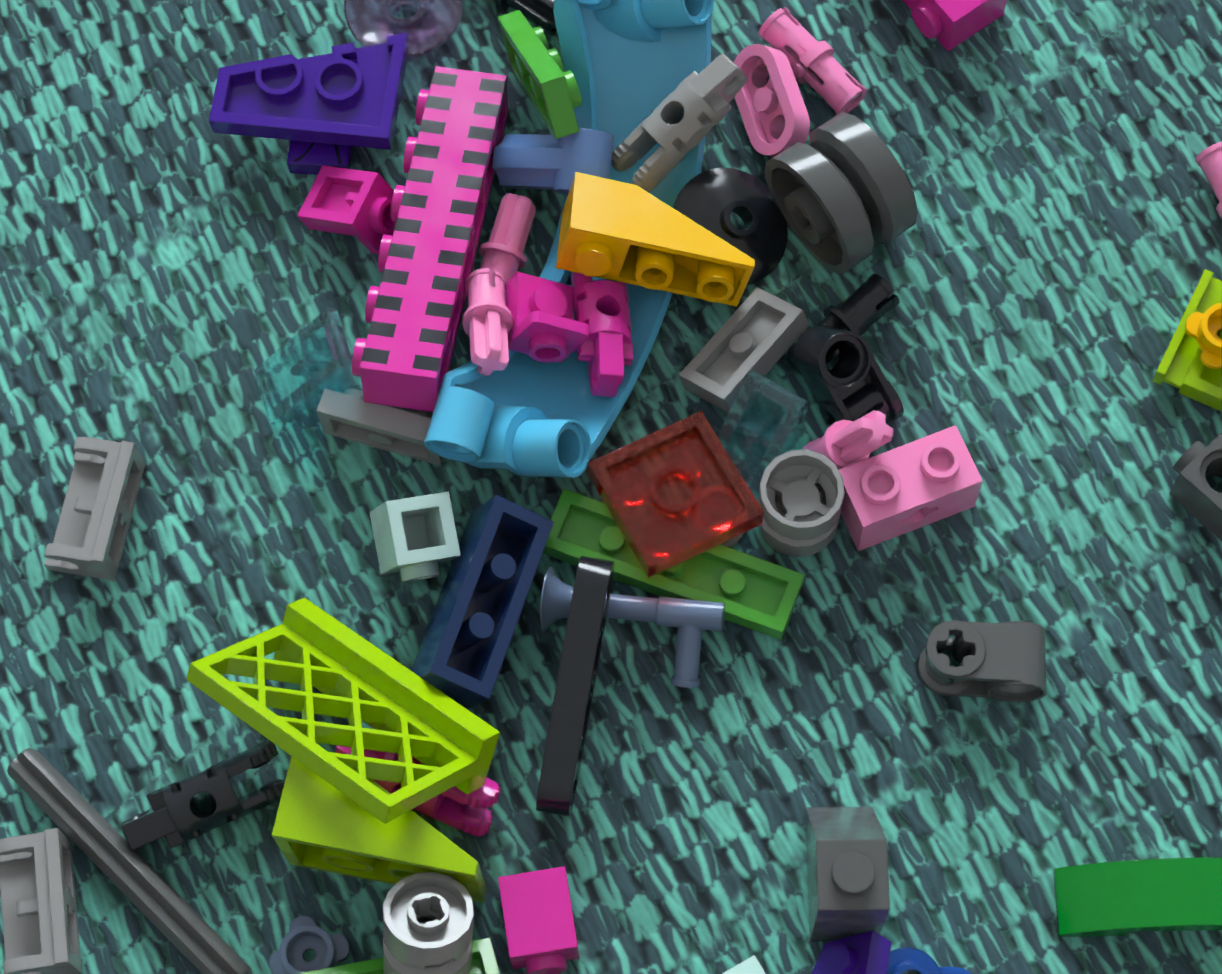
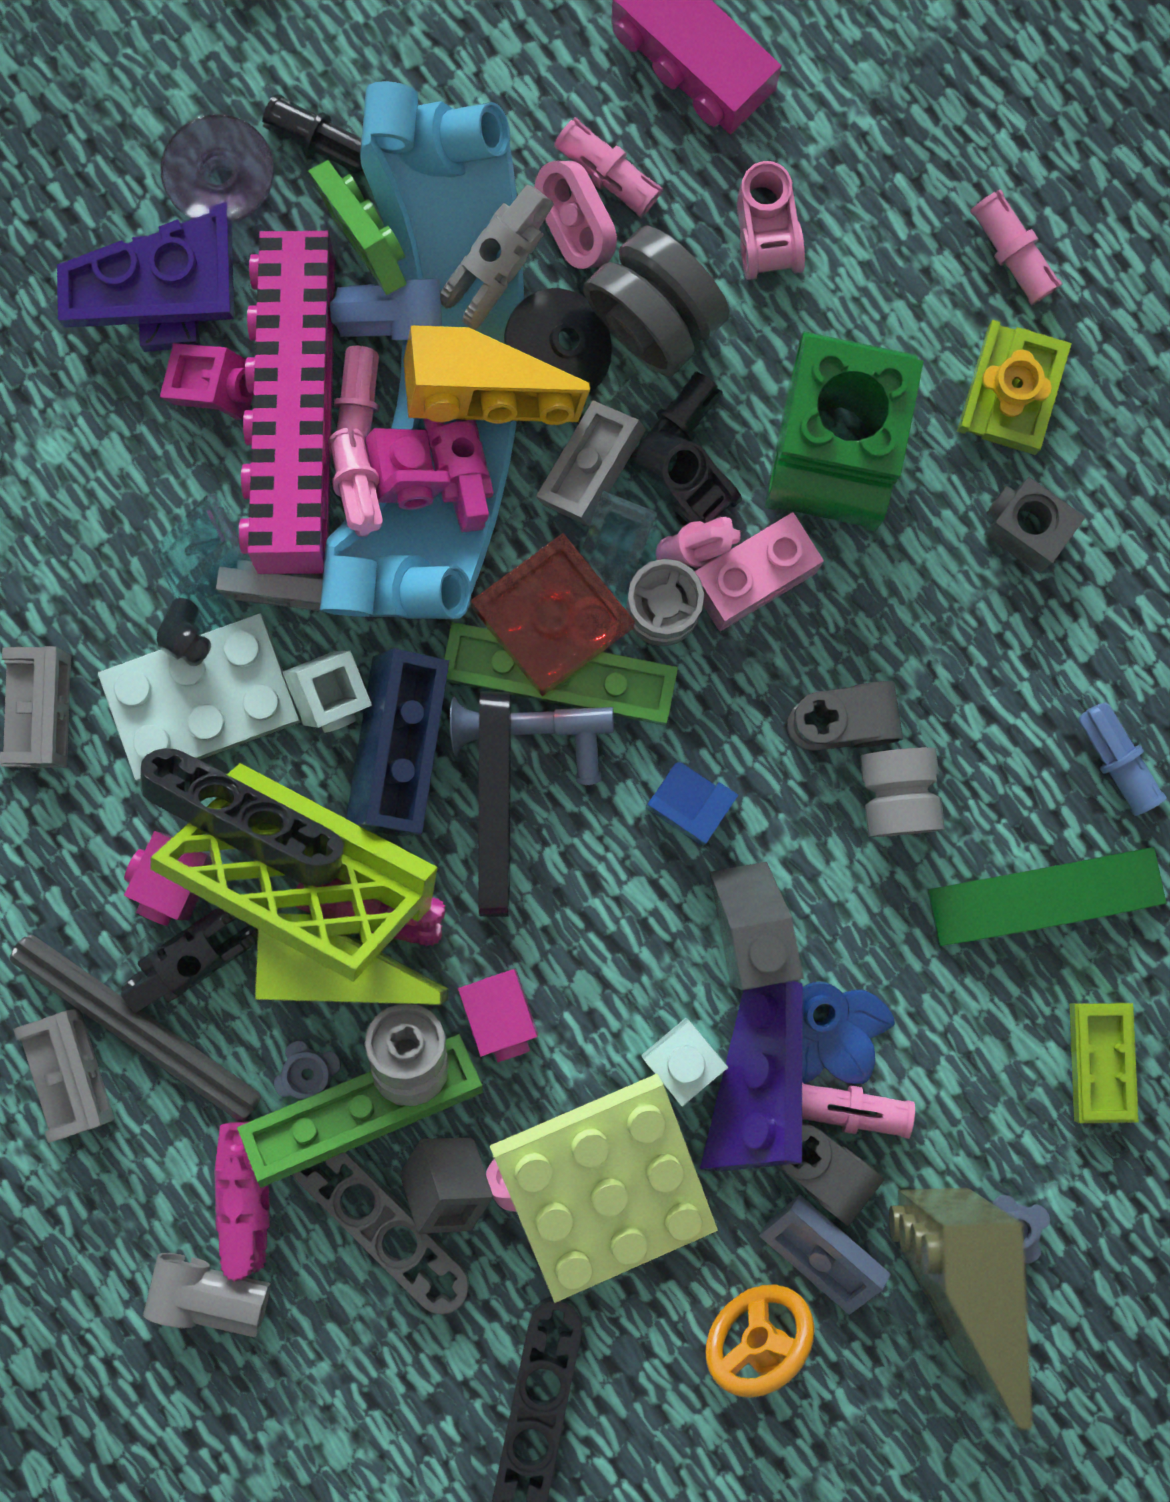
camera: 15 degrees left, 15 degrees up
(191, 719) = (158, 896): none -> dark pink brick
(268, 454) = (179, 636): none -> black arm
(274, 528) = (203, 707): none -> light aqua plate
(347, 680) = (301, 848): none -> black beam
(796, 727) = (691, 803): none -> blue panel
(975, 147) = (771, 232): none -> bright pink piece
(1011, 391) = (836, 476): none -> green piece
(1037, 741) = (902, 792): none -> light grey wheel

